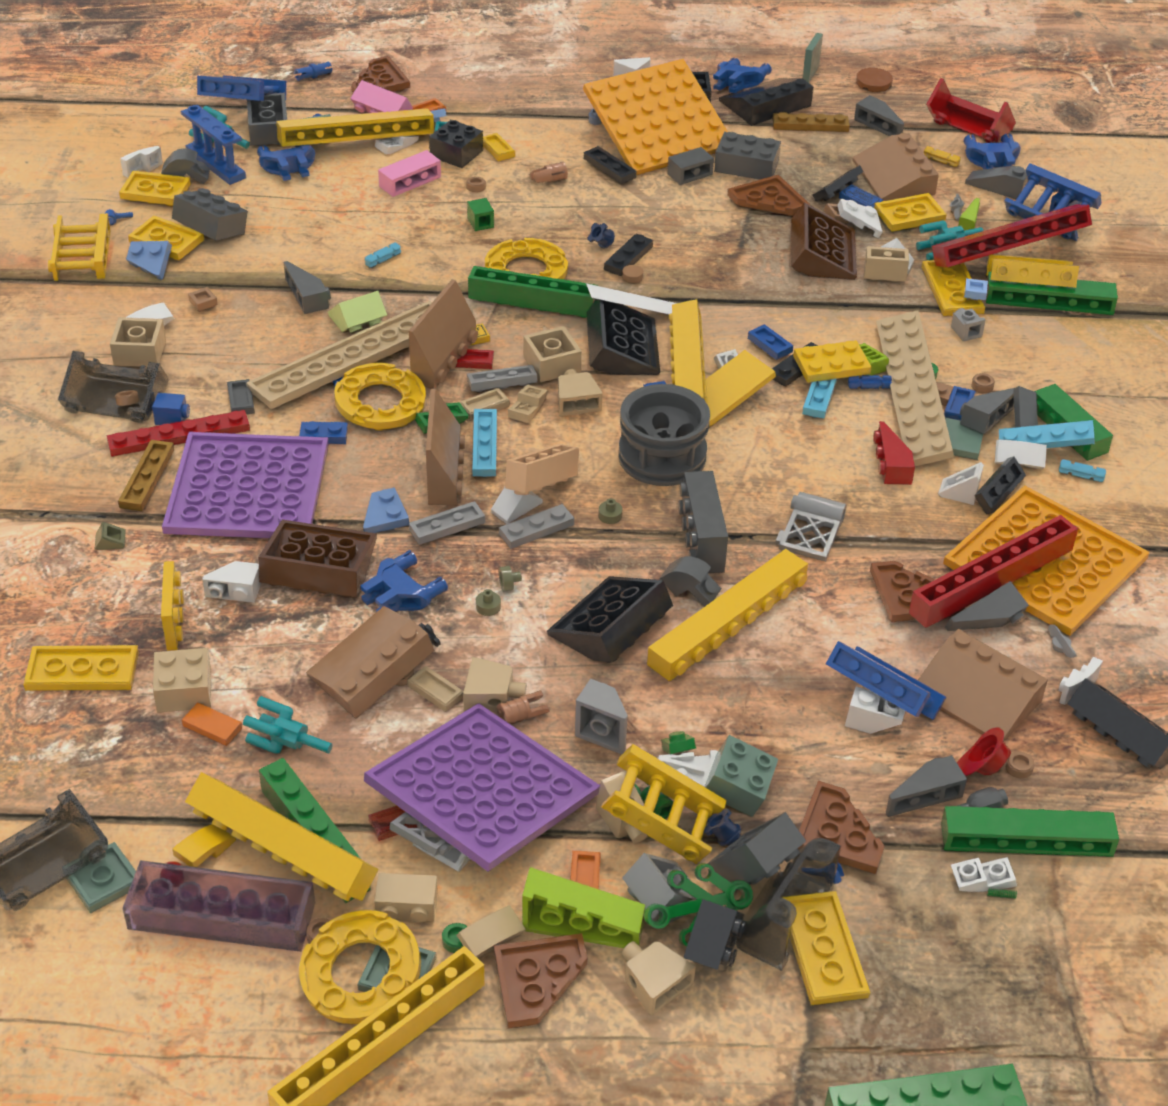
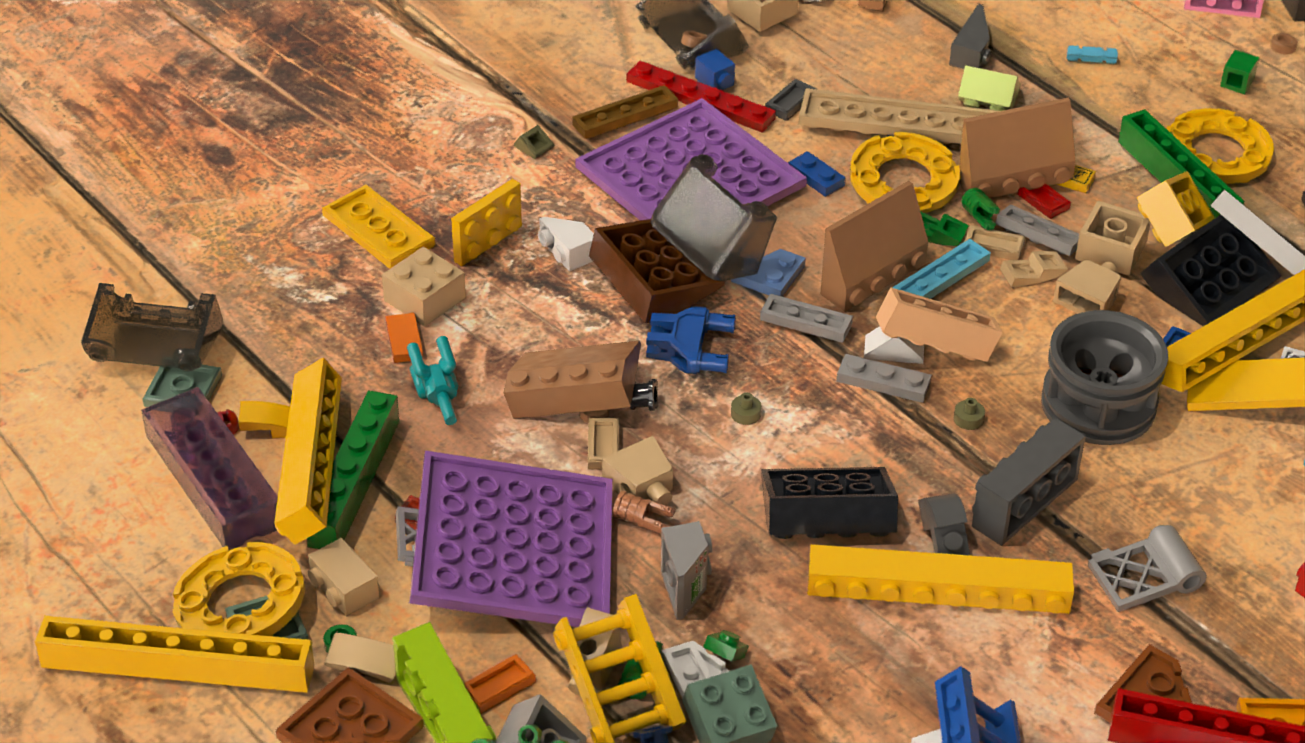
camera: 50 degrees right, 0 degrees up
(330, 498) = (712, 225): none -> clear smoke windscreen
(455, 386) = (980, 207): none -> green hinge
(508, 578) = (787, 399): olive tile -> none
(574, 312) = (1174, 208): none -> yellow brick

